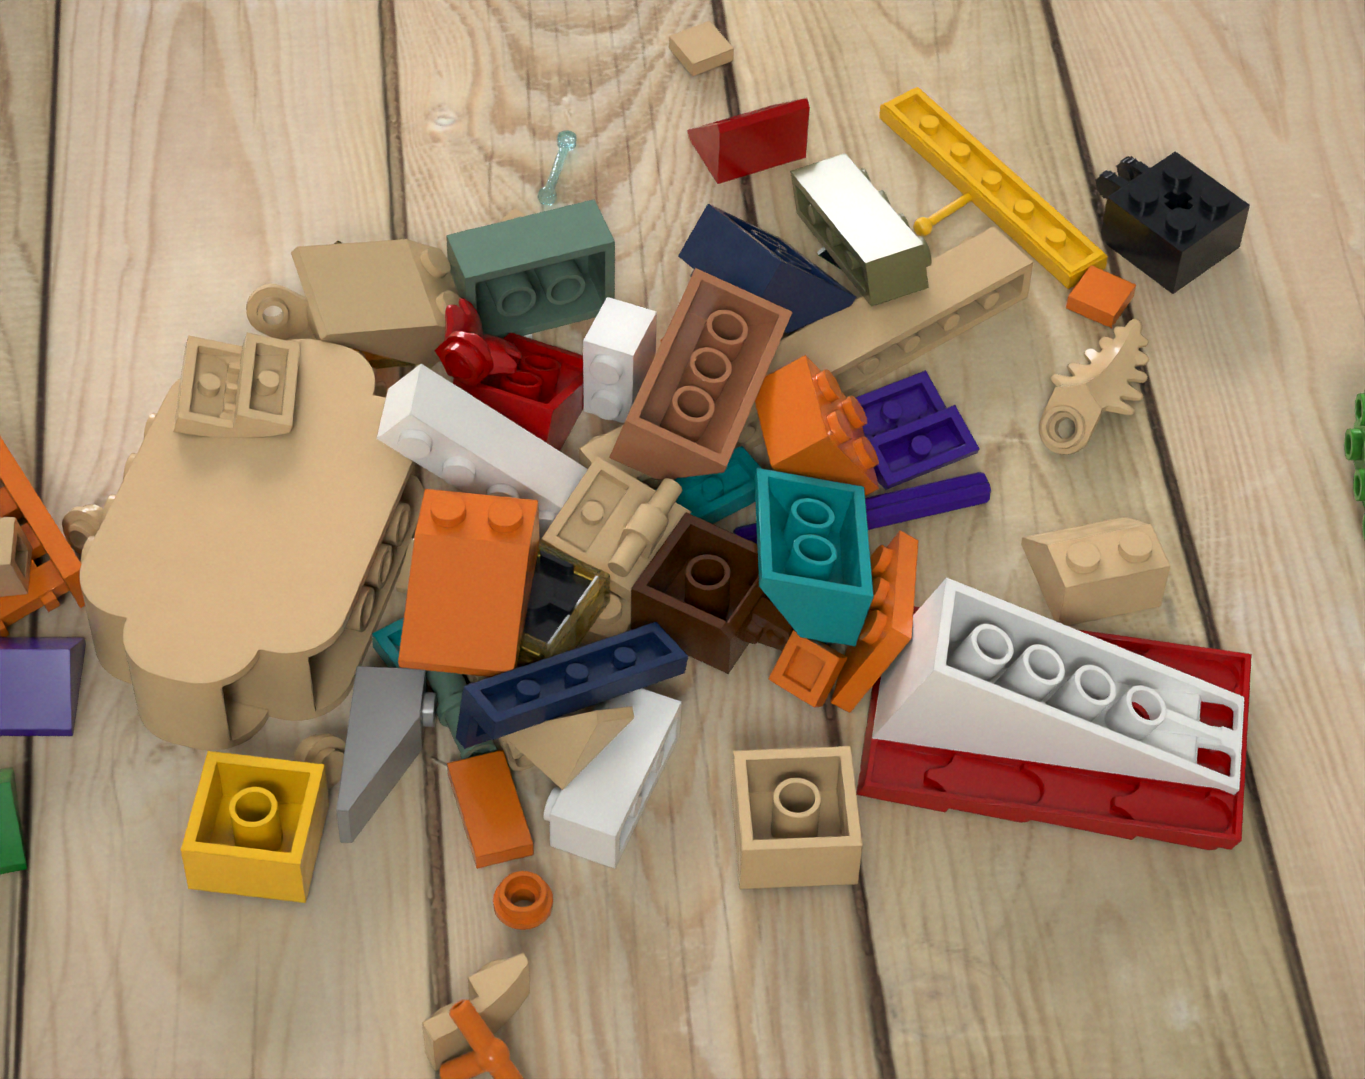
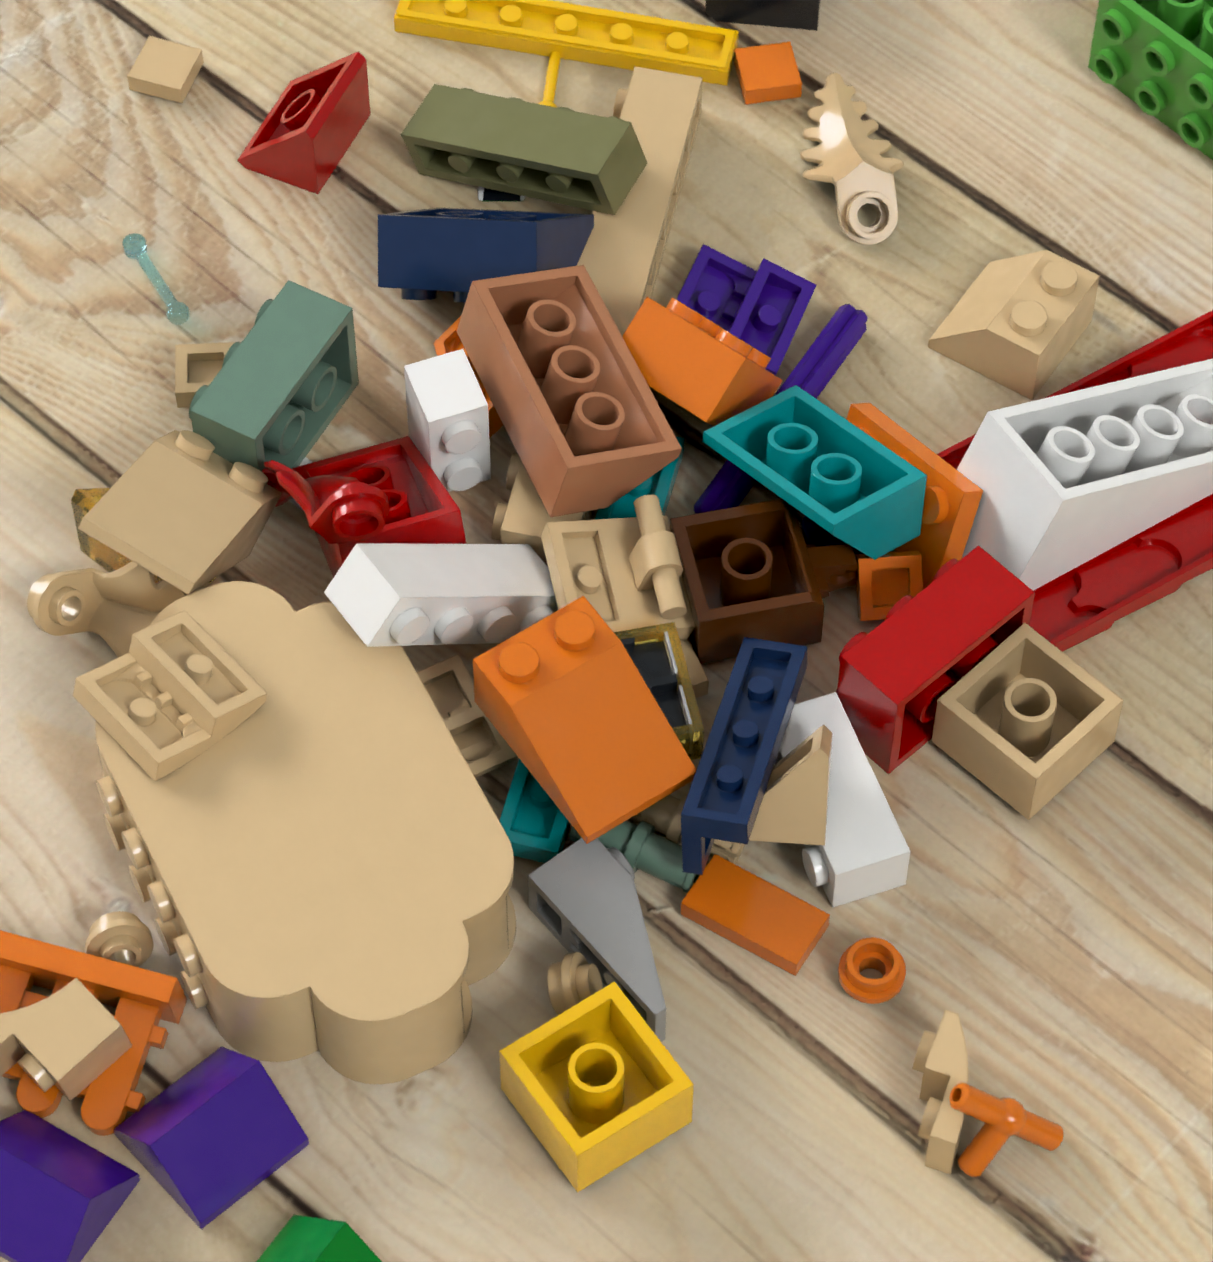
camera: 40 degrees left, 5 degrees up
(764, 710) = (923, 649): none -> red brick

